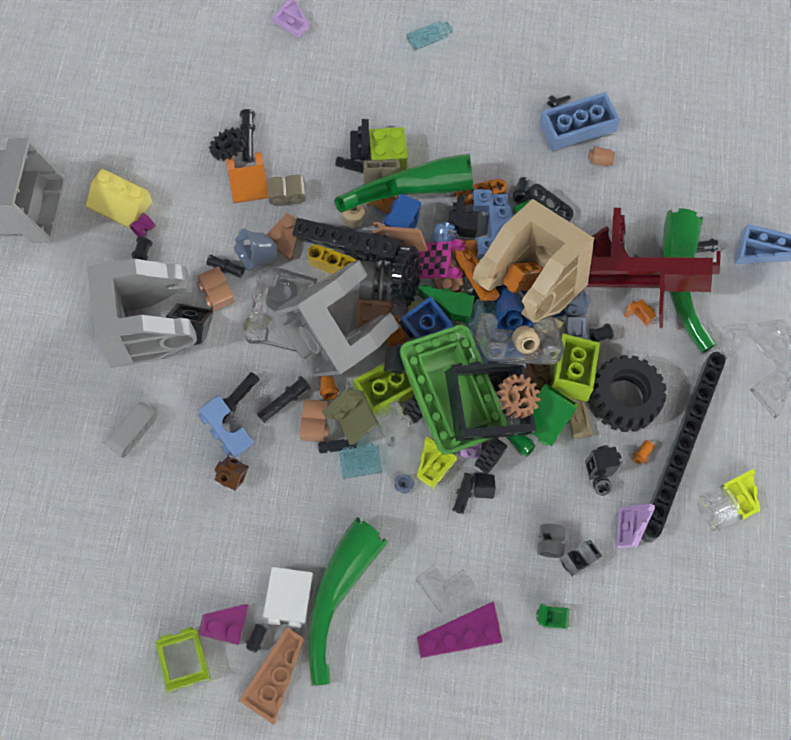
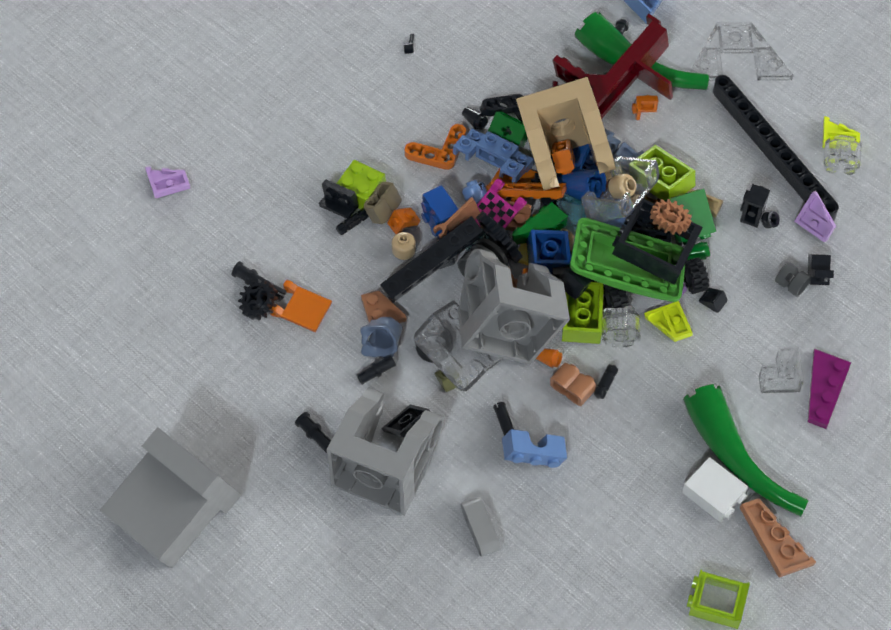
camera: 50 degrees left, 10 degrees down
(117, 198) = (242, 416): light yellow slope -> none
(142, 225) = (285, 411): magenta wheel -> none
(216, 289) = (396, 388): nougat brick -> none
(224, 624) = (708, 550): magenta wing -> none
(230, 473) = (577, 470): reddish brown brick -> none
(256, 638) = (734, 534): black pin -> none
(286, 189) = (339, 282): dark tan brick -> none
(291, 393) = (535, 388): black pin -> none
(326, 256) = (440, 280): yellow beam -> none
(353, 413) = (596, 348): olive bracket -> none
(360, 461) = (632, 373): clear light blue bracket -> none
(403, 479) = (676, 349): sand blue plate -> none
(429, 34) = (269, 94): clear light blue hinge -> none
(432, 177) = (419, 166): green brick -> none
(464, 222) = (475, 170): black brick -> none
(464, 493) = (711, 316): black pin -> none
(553, 617) = (854, 316): green bracket -> none
(579, 121) = (445, 40): medium blue brick -> none
(601, 156) = (487, 46): nougat brick -> none
(601, 333) = (643, 141): black bush -> none
(639, 374) = (716, 138): black tyre -> none
(643, 452) = (761, 177): orange pin -> none

